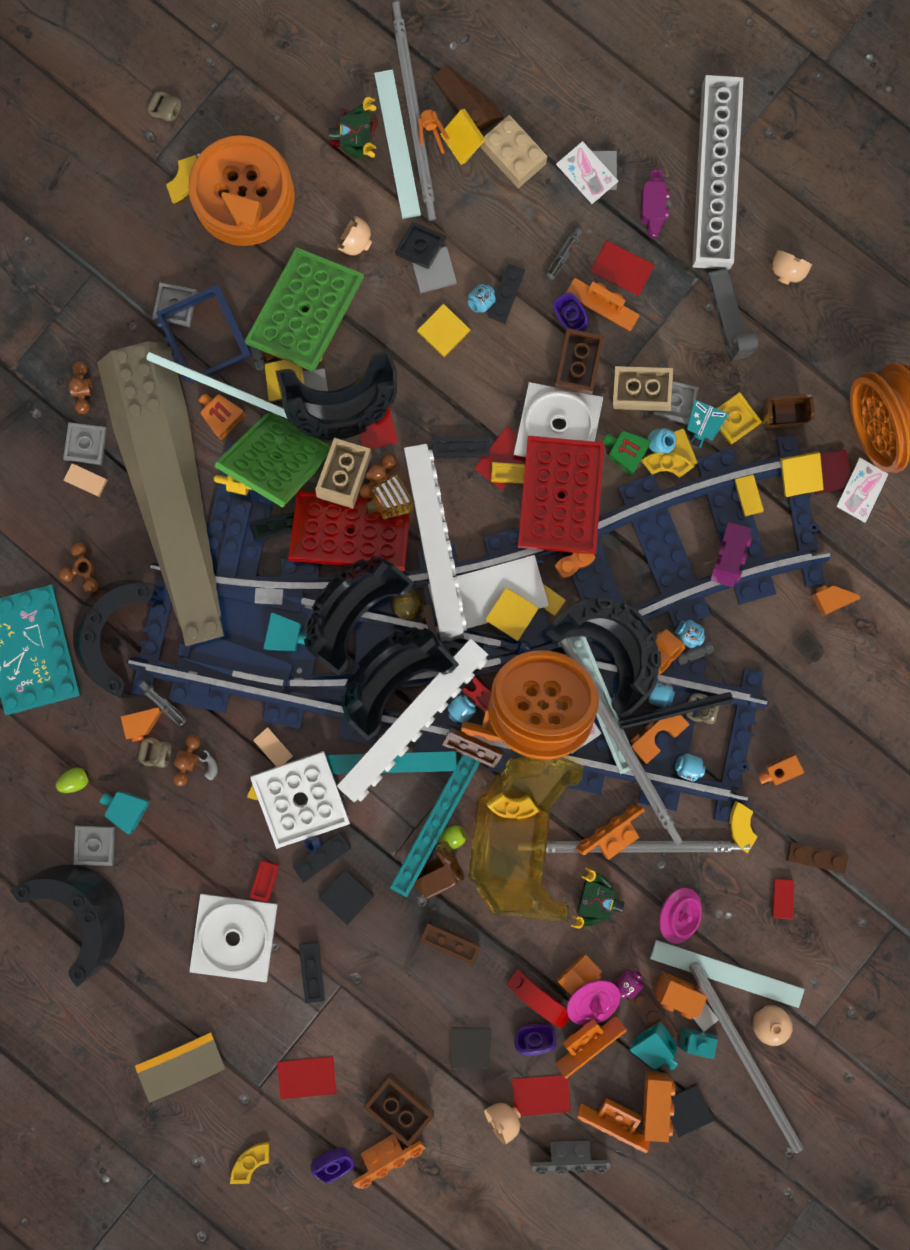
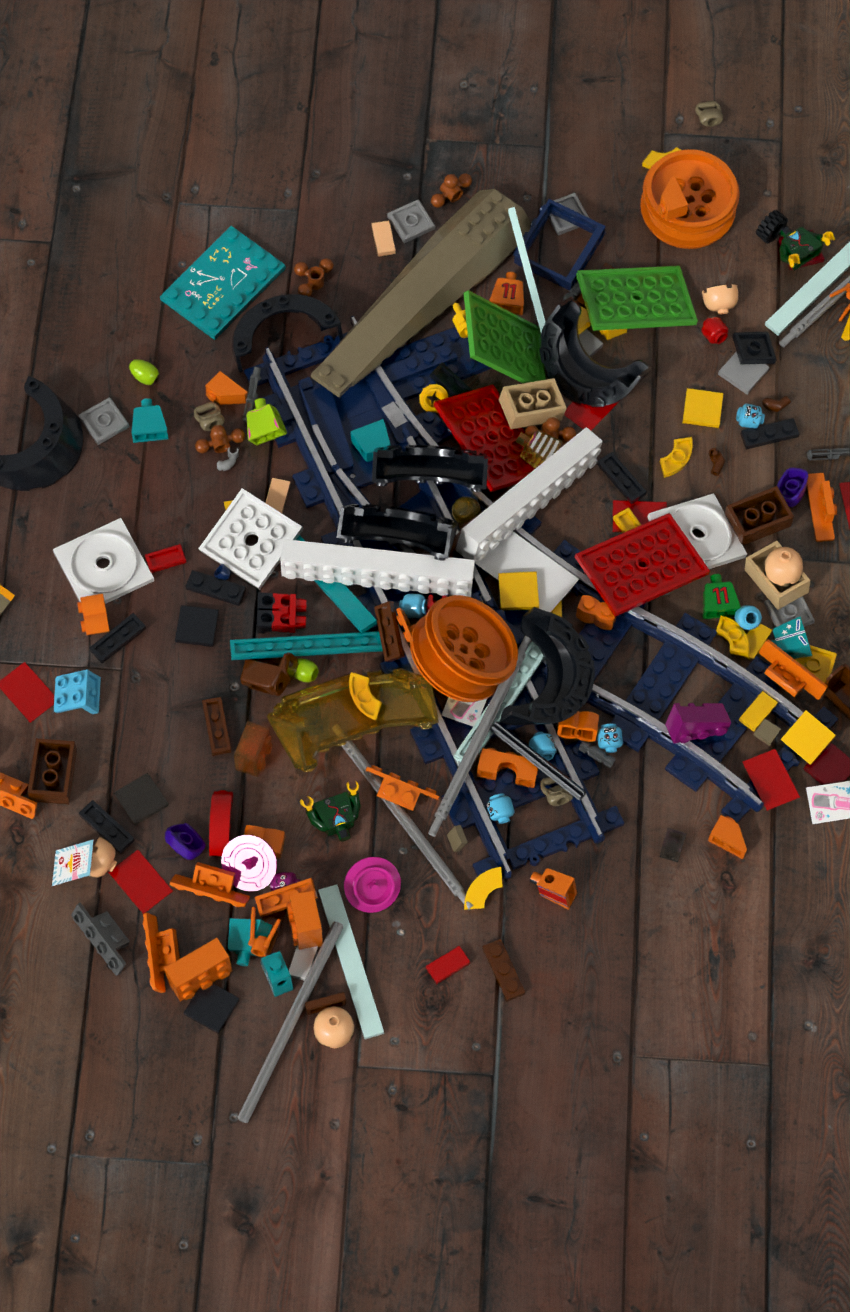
camera: 55 degrees right, 20 degrees down
(198, 712) = (264, 423): none -> lime torso
(278, 979) = (94, 614): none -> orange brick
(283, 552) = (428, 391): none -> yellow gear
(318, 141) = (771, 226): none -> black tyre
(339, 1039) = (77, 691): none -> medium azure bracket
(380, 265) = (714, 330): none -> red head
(389, 817) = (279, 611): none -> red hips
(474, 385) = (678, 457): none -> yellow tile
(476, 1094) = (106, 826): none -> black plate
(484, 269) = (775, 405): none -> reddish brown arm
(494, 1147) = (72, 862): none -> sticker
(496, 932) = (252, 749): none -> clear orange brick
(501, 355) = (718, 461): none -> reddish brown arm
(646, 995) = (278, 899): none -> orange plate
(647, 380) = (784, 566): none -> light nougat cylinder
(677, 1045) = (261, 943): none -> orange plant
(685, 816) = (457, 838): none -> dark tan tile
(736, 447) = (790, 673): none -> orange bracket
(750, 1020) = (318, 1005): none -> reddish brown tile
(771, 502) = (767, 732): none -> dark tan tile
(811, 529) = (771, 779): none -> red sticker

